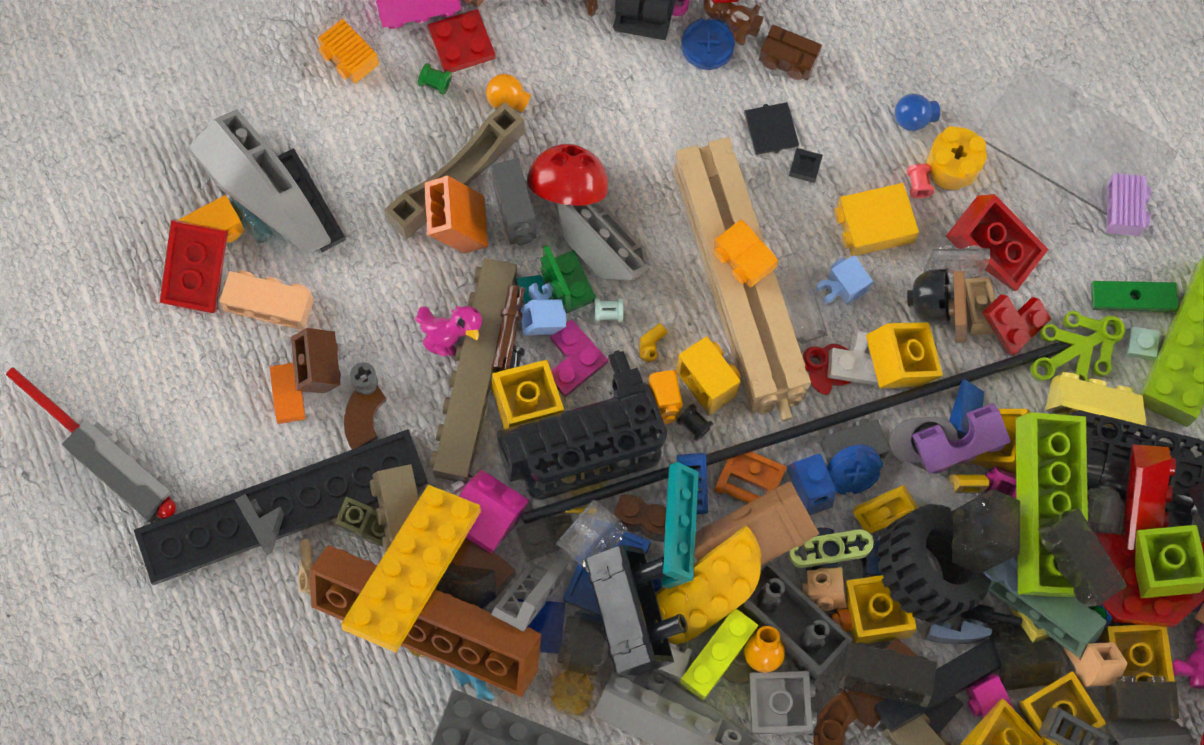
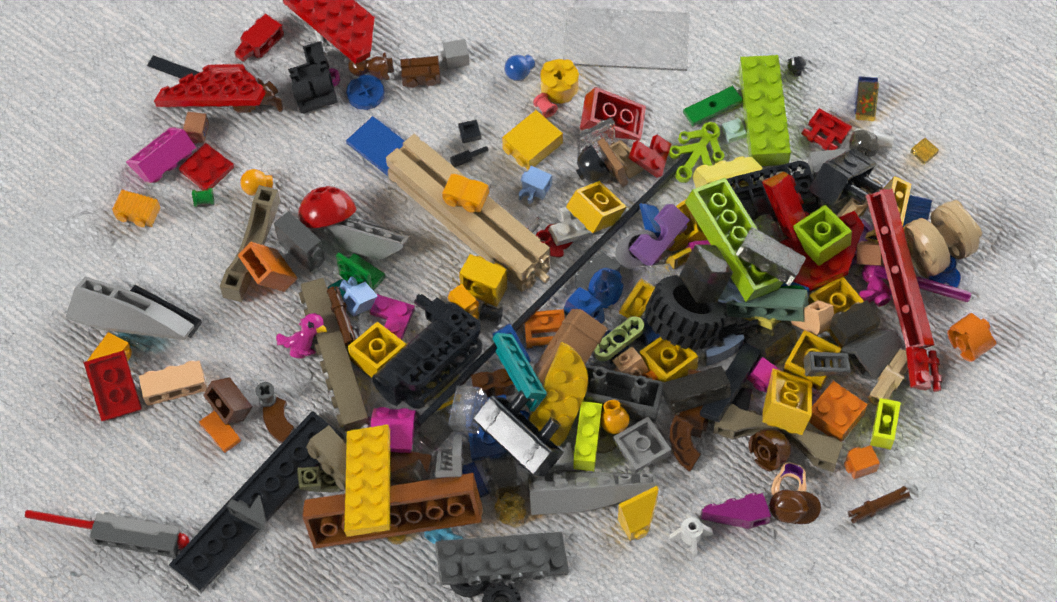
camera: 25 degrees left, 10 degrees down
(305, 565) = (298, 530): tan plate -> none
(617, 306) = (397, 276): light aqua bush -> none
(648, 343) = (433, 282): yellow arm -> none
(682, 118) = (375, 143): none -> blue tile
(771, 128) = (434, 121): black piece -> none
(783, 196) = (466, 156): none -> black axle
(846, 52) = (455, 54): none -> light grey brick
(1127, 204) = (677, 56): lavender brick -> none

